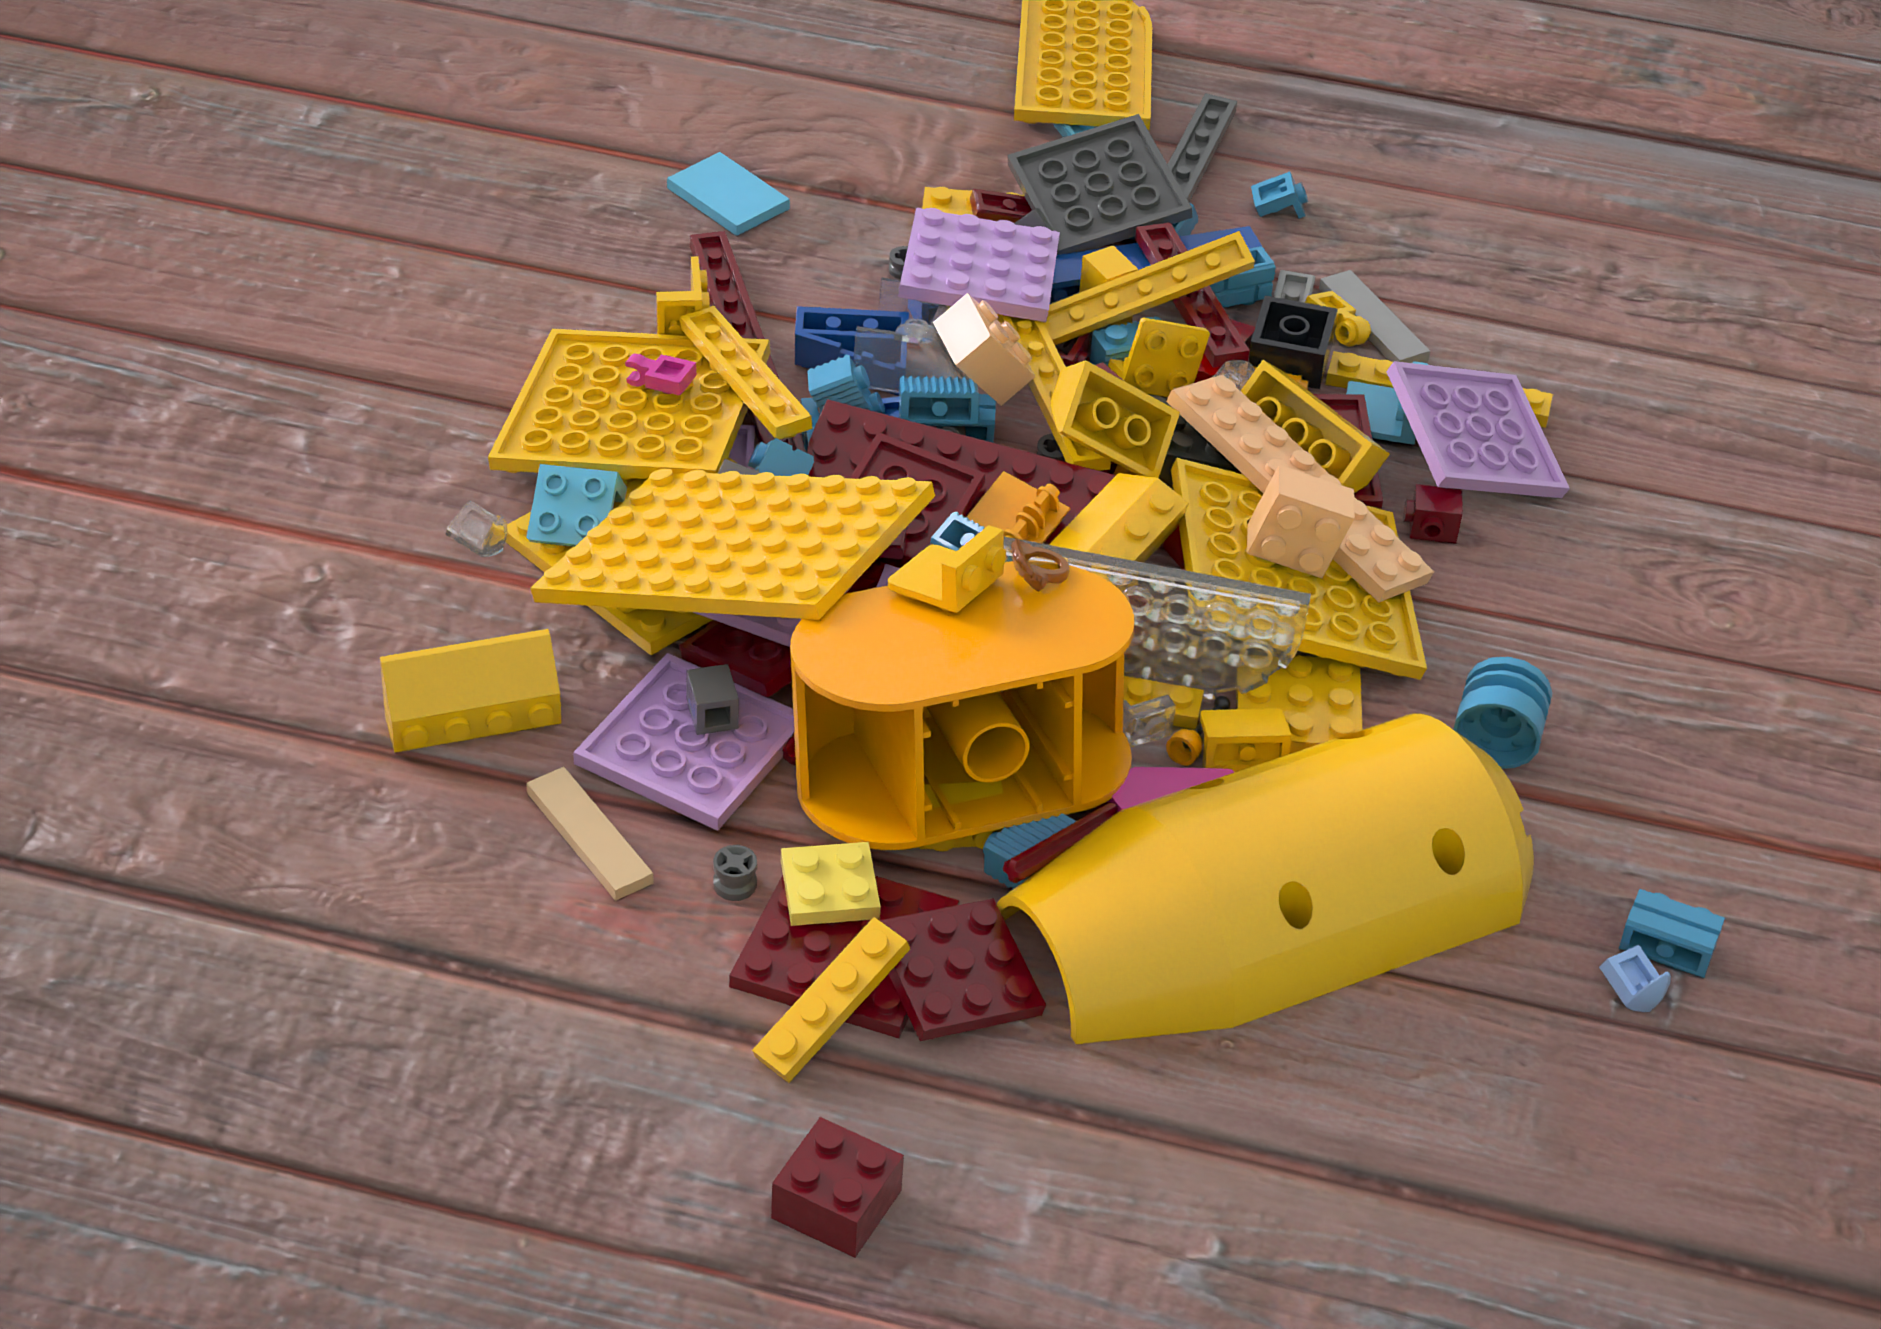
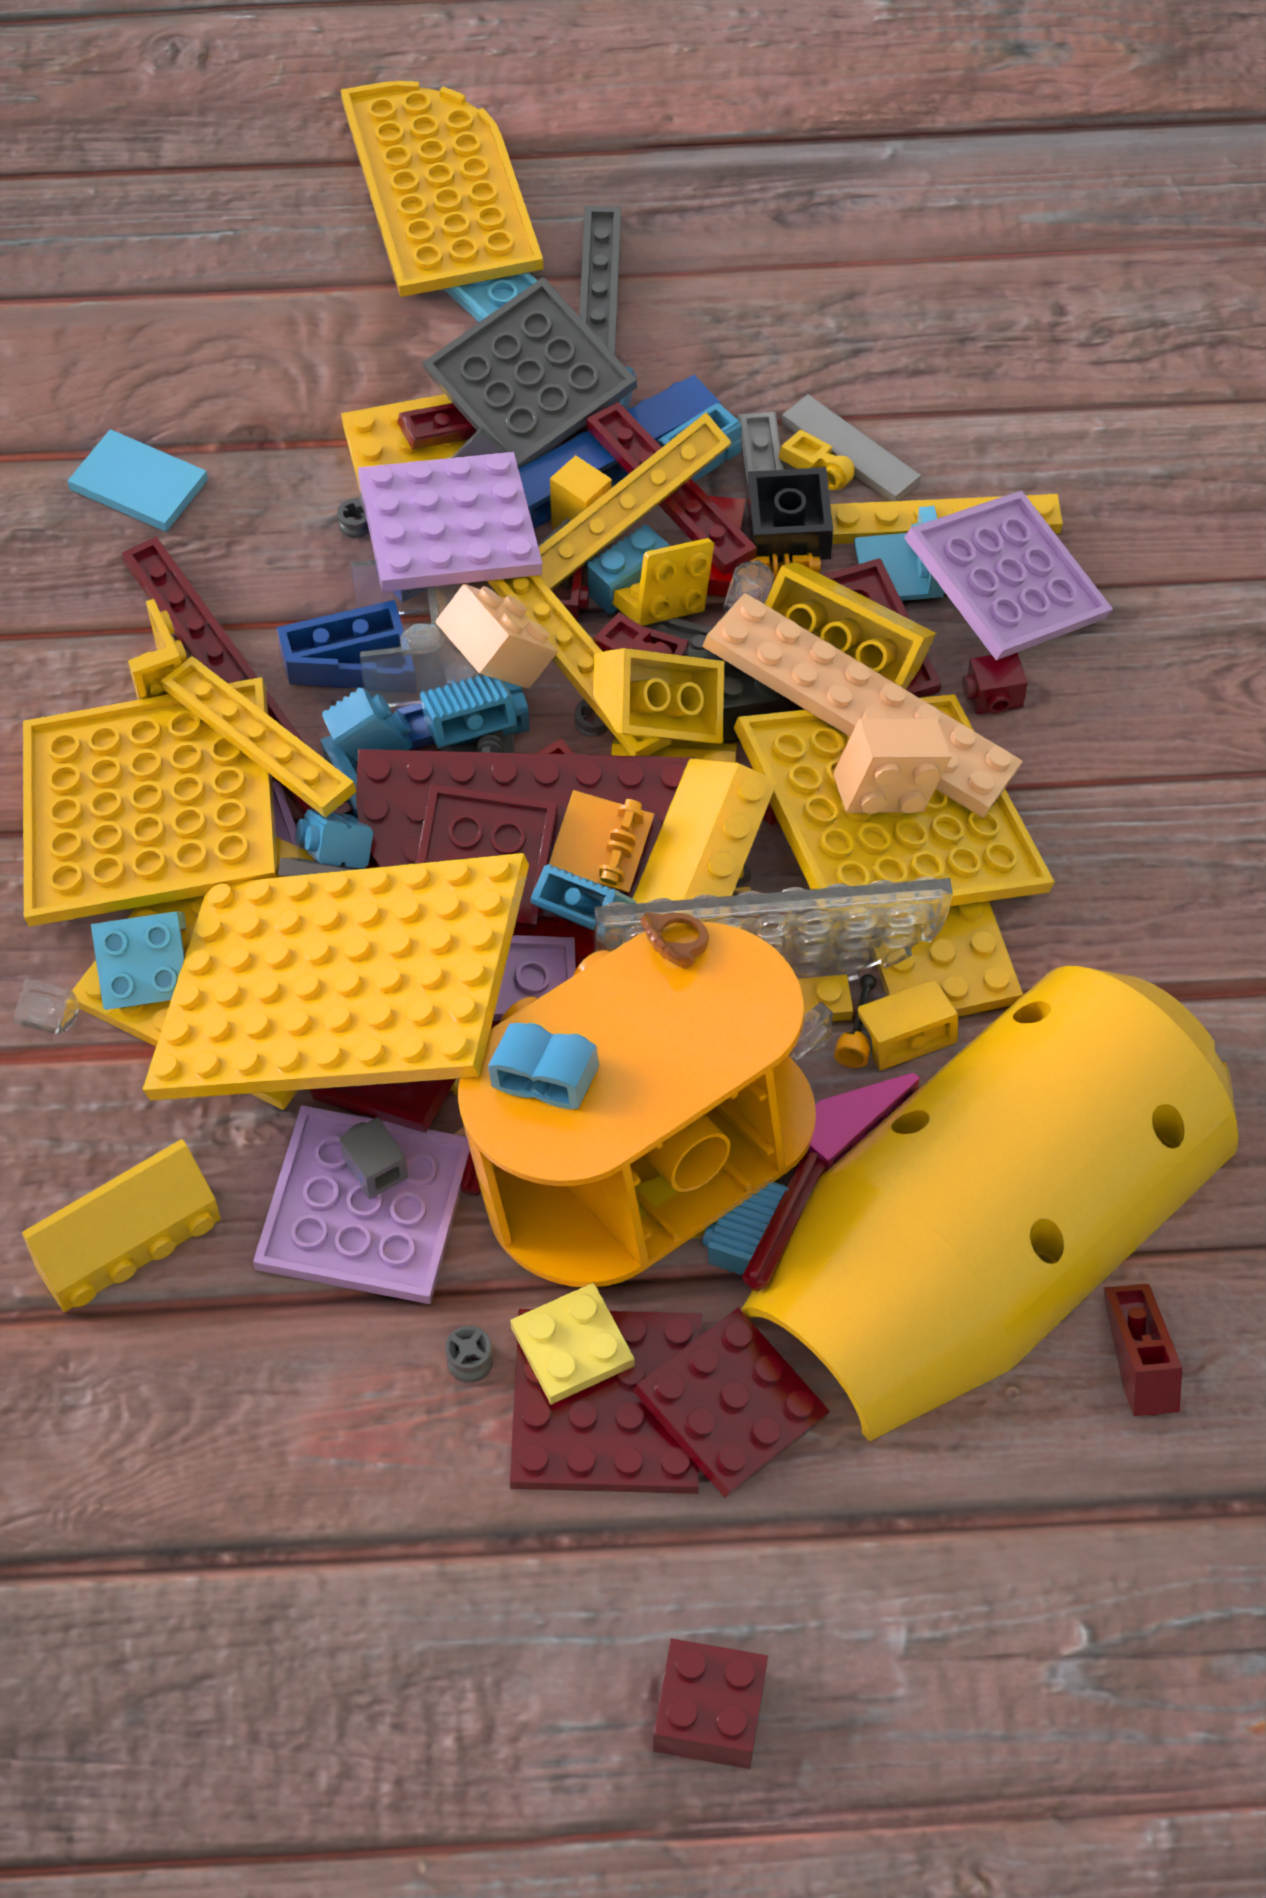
camera: 15 degrees left, 15 degrees up
(590, 833) = (303, 1351): tan tile -> none
(665, 374) = (173, 762): dark pink plate -> none
(831, 999) = (625, 1485): yellow plate -> none
(877, 617) = (544, 1065): none -> dark azure brick
(951, 576) = (590, 980): yellow bracket -> none
(1279, 193) = (704, 318): dark azure bracket -> none
(1362, 1042) = (1144, 1350): none -> dark red slope
(1505, 709) = (1148, 918): dark azure wheel -> none

